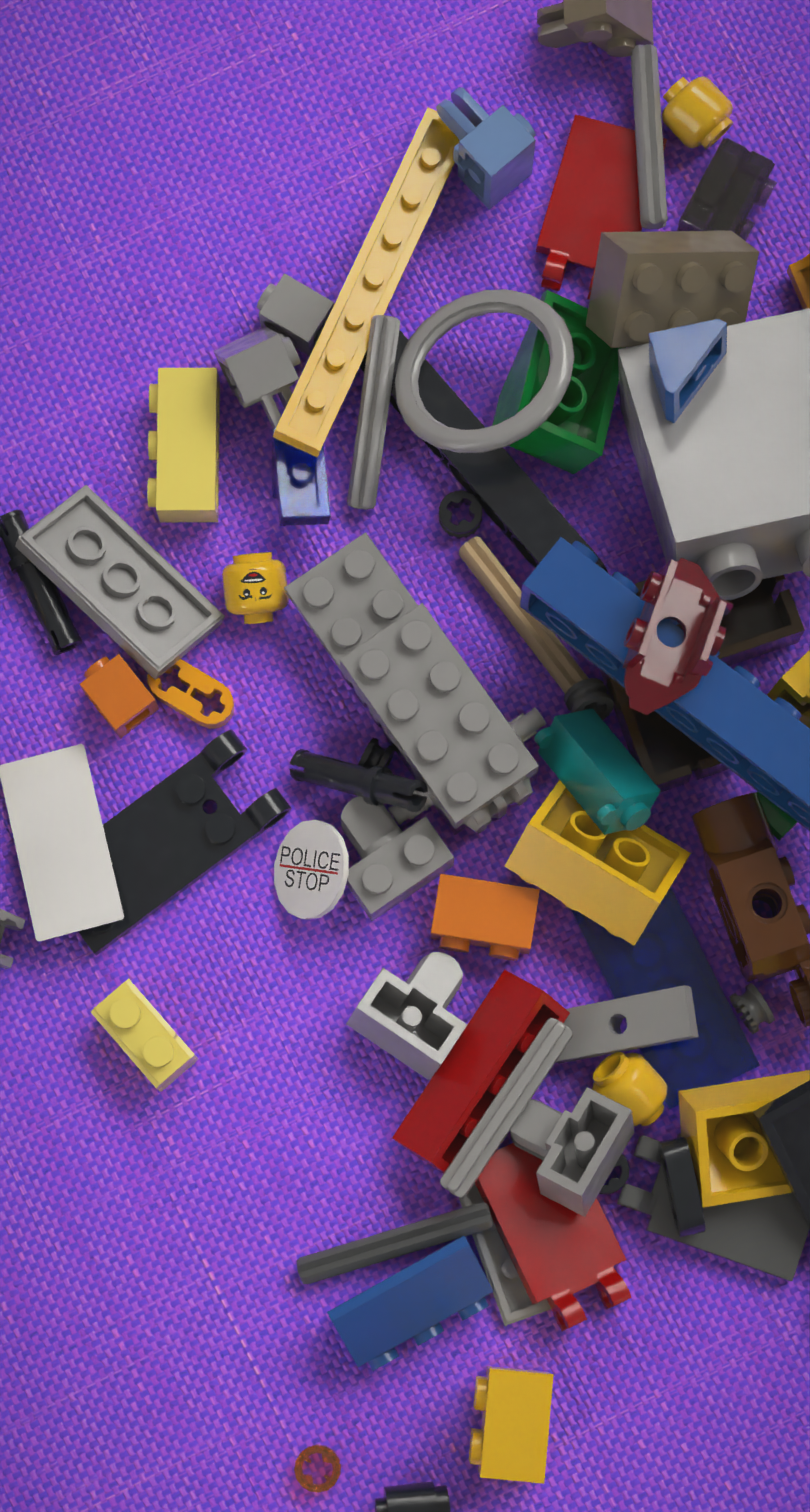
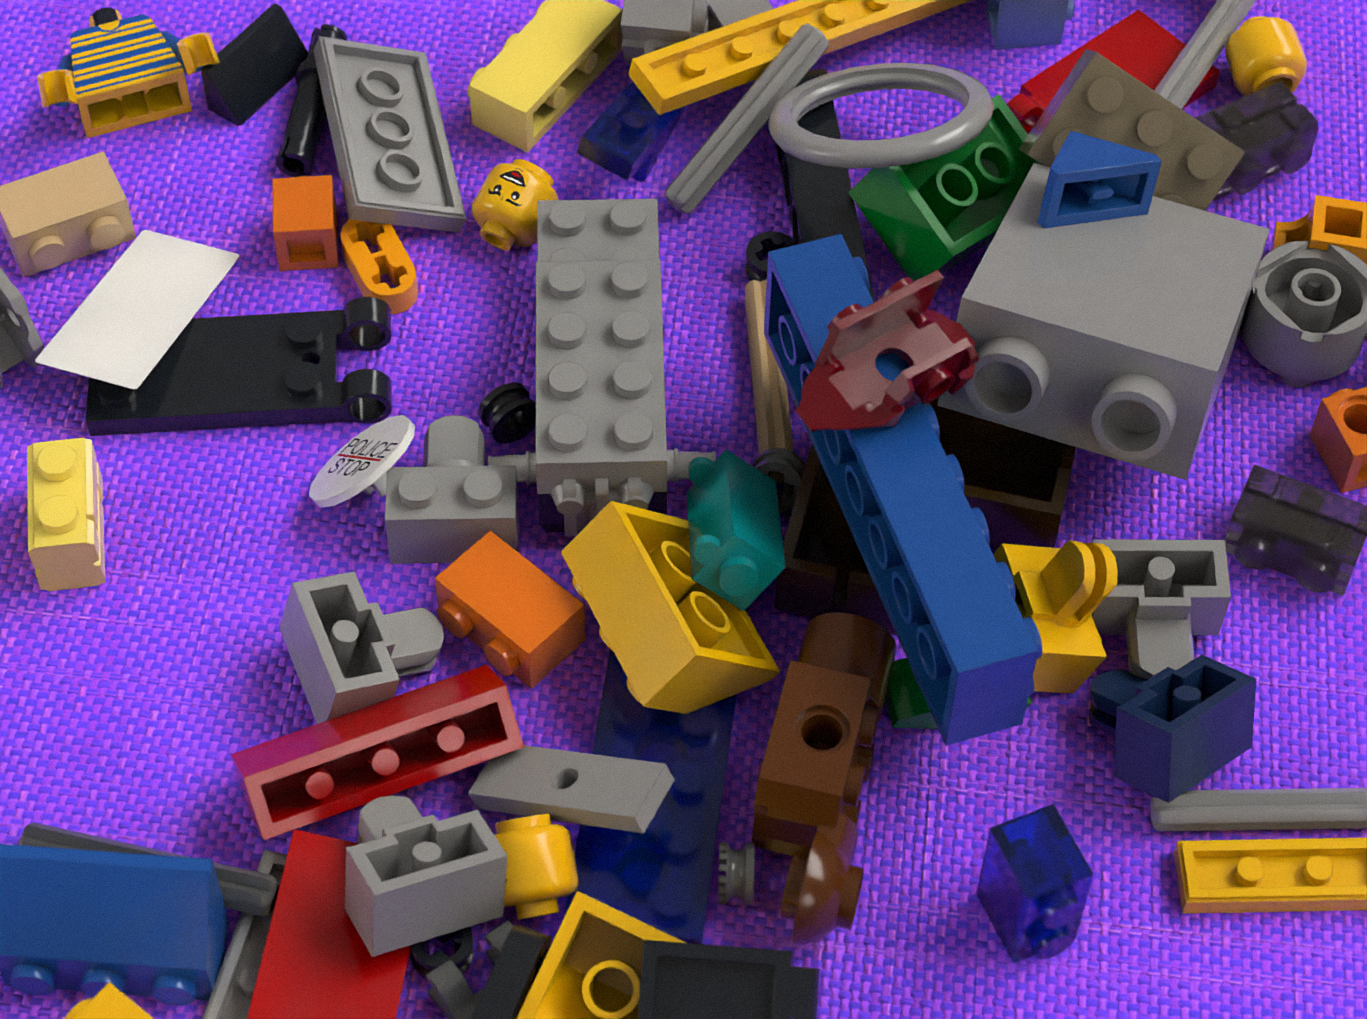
camera: 30 degrees right, 25 degrees down
(374, 784) = (483, 405): black pin -> none
(506, 1107) = (372, 784): light grey axle -> none

